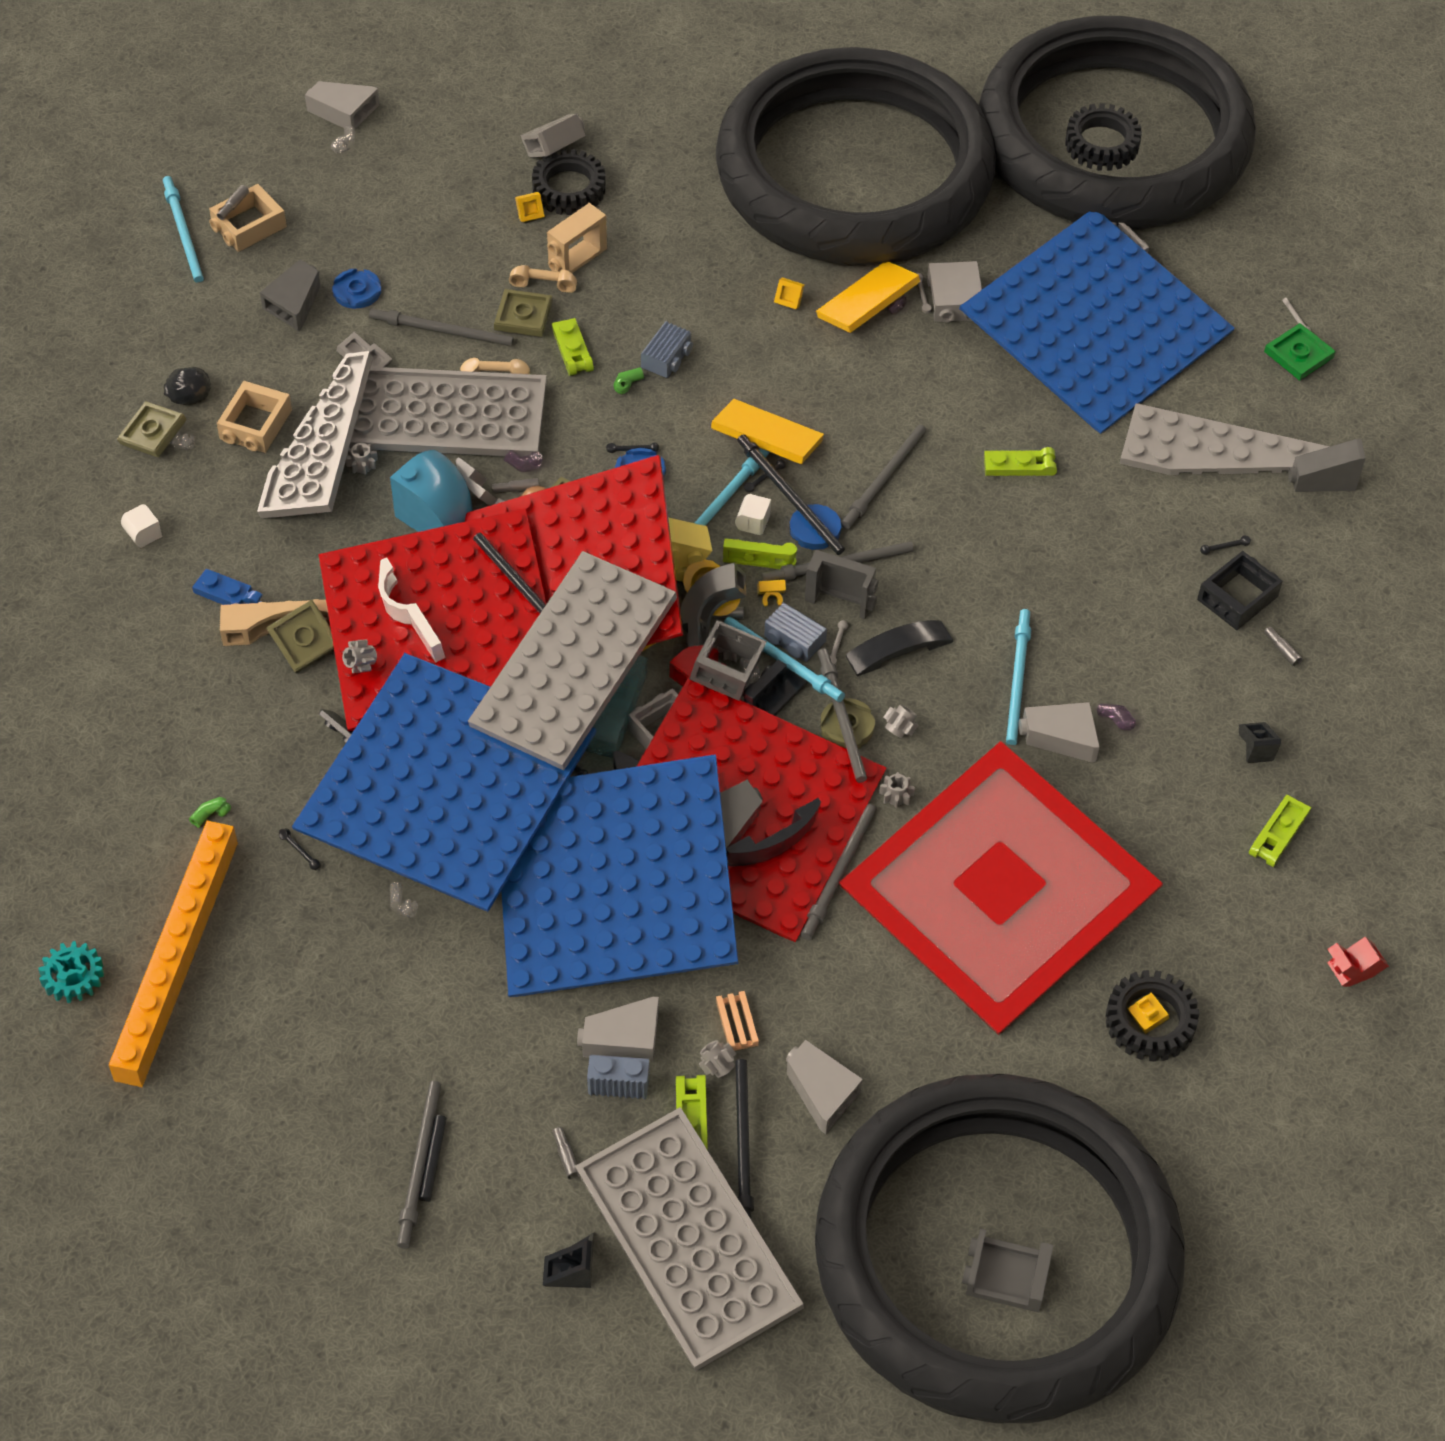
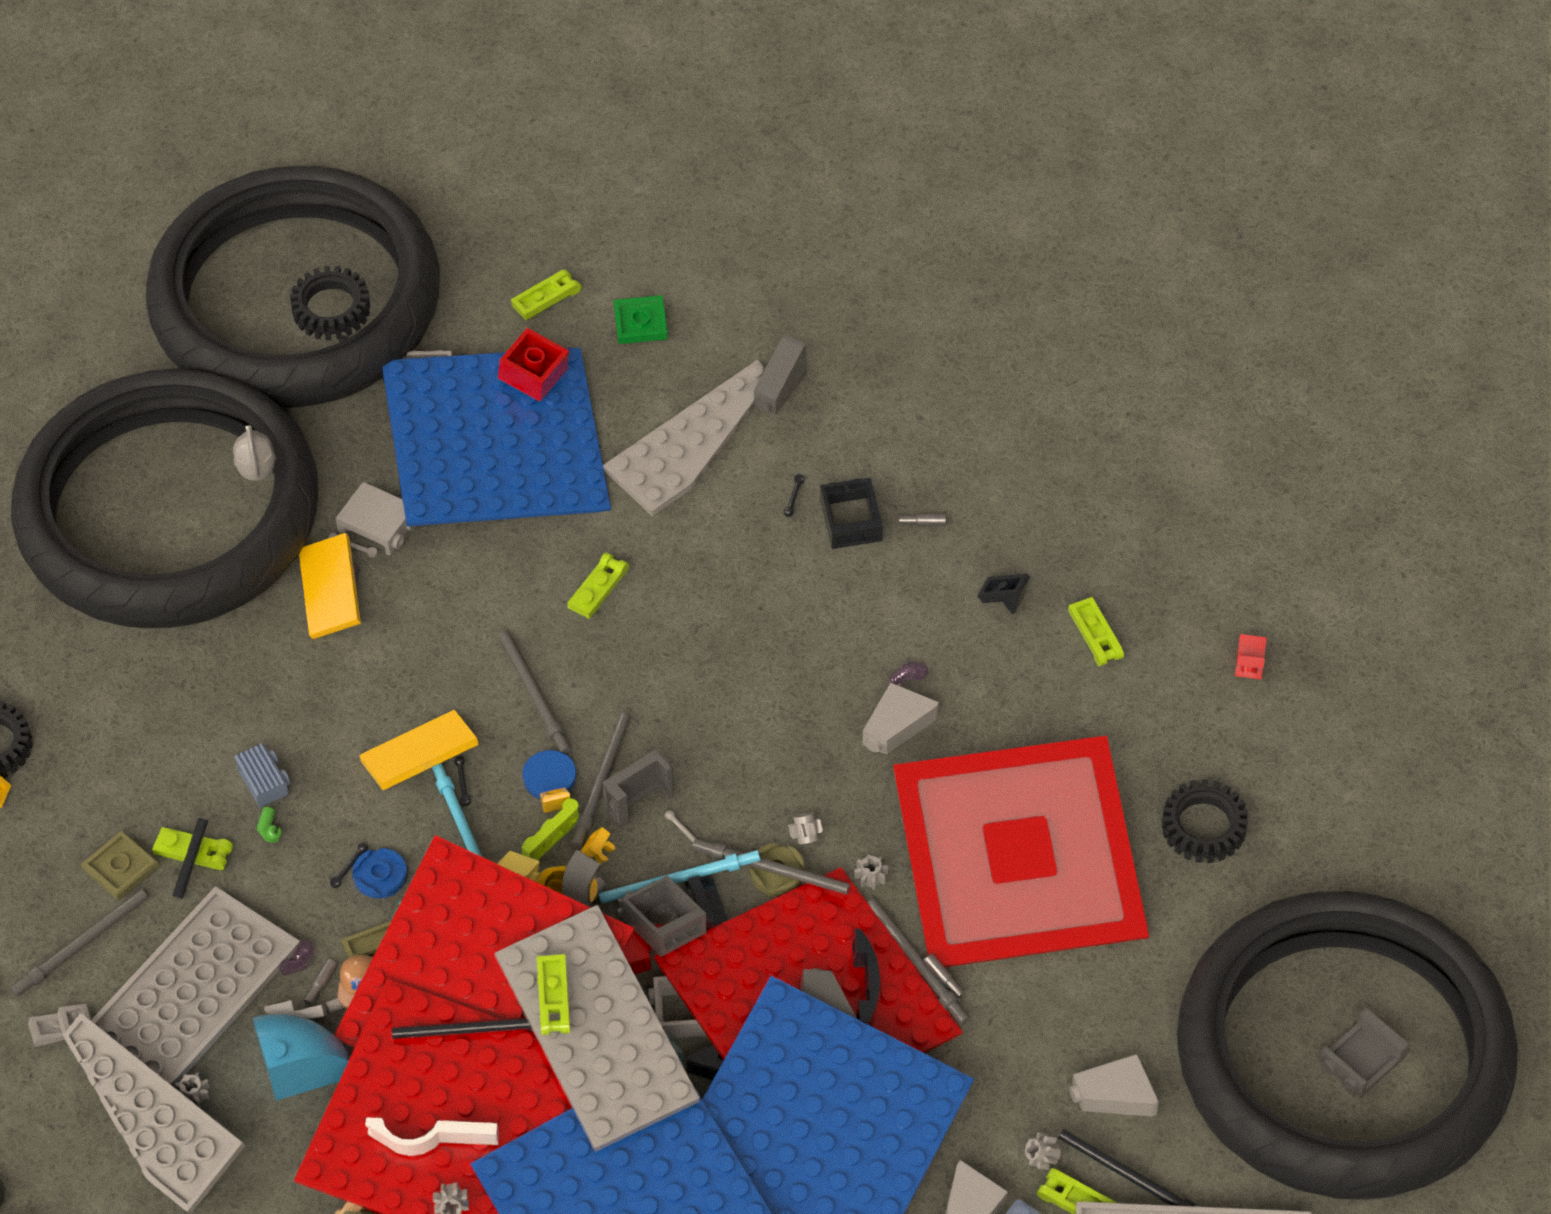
camera: 55 degrees left, 0 degrees up
(261, 398) = (54, 1135): tan window -> none
(514, 366) = (153, 939): tan bar -> none
(520, 276) = (110, 809): tan bar -> none
(558, 346) = (190, 858): none -> black bar
(569, 606) = (553, 993): none -> lime plate
(585, 222) = (78, 772): tan window -> none
(732, 1000) = (1015, 1109): light nougat tile -> none
(752, 450) = (505, 771): black bar -> none
(753, 514) = (503, 812): white piece -> none
(788, 535) = (553, 799): none -> yellow slope
(789, 293) = (274, 643): yellow tile -> none
(795, 632) = (655, 853): sand blue brick -> none
(837, 894) = (942, 974): none -> flat silver pin
(896, 643) = (722, 788): black slope -> none
(919, 166) = (253, 455): none -> light grey helmet
(1022, 635) = (779, 690): medium azure bar -> none
(1148, 1013) = (1199, 822): yellow tile -> none
(1177, 298) = (533, 364): none -> red brick
(1266, 280) = (545, 294): none -> lime plate
(1293, 312) = (595, 298): light grey hinge -> none

